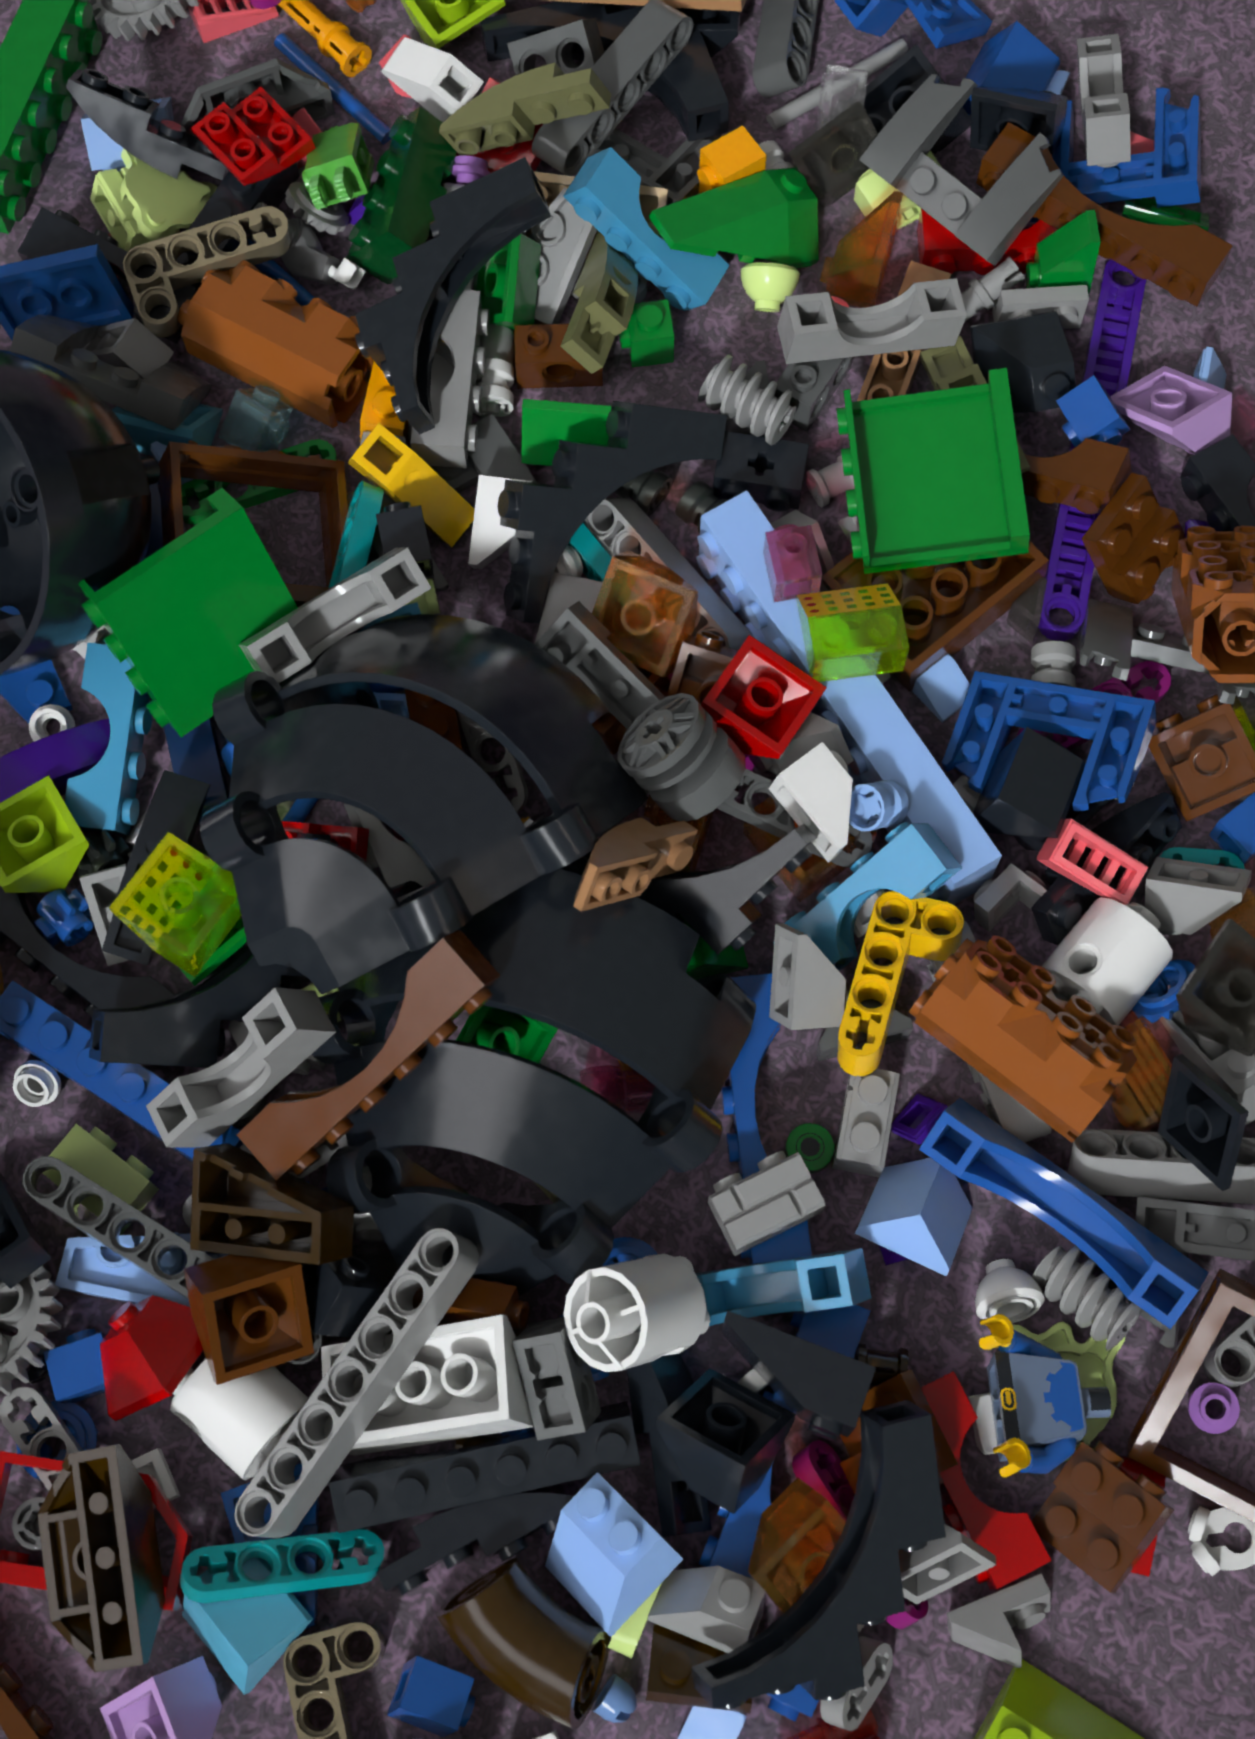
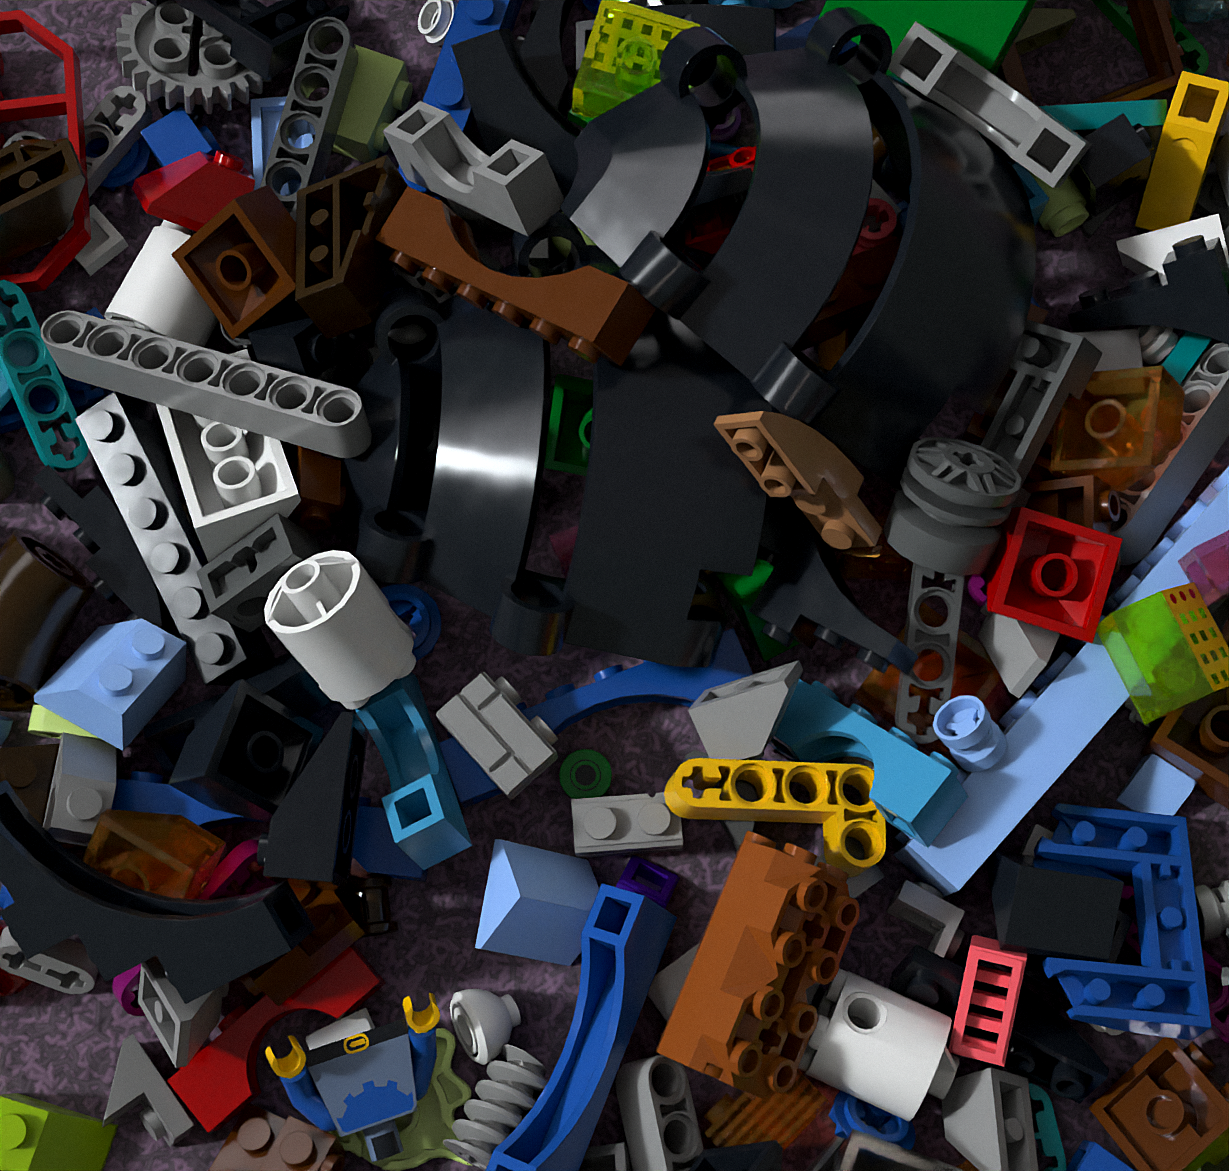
camera: 75 degrees right, 5 degrees up
(818, 794) = (956, 662): white slope -> none

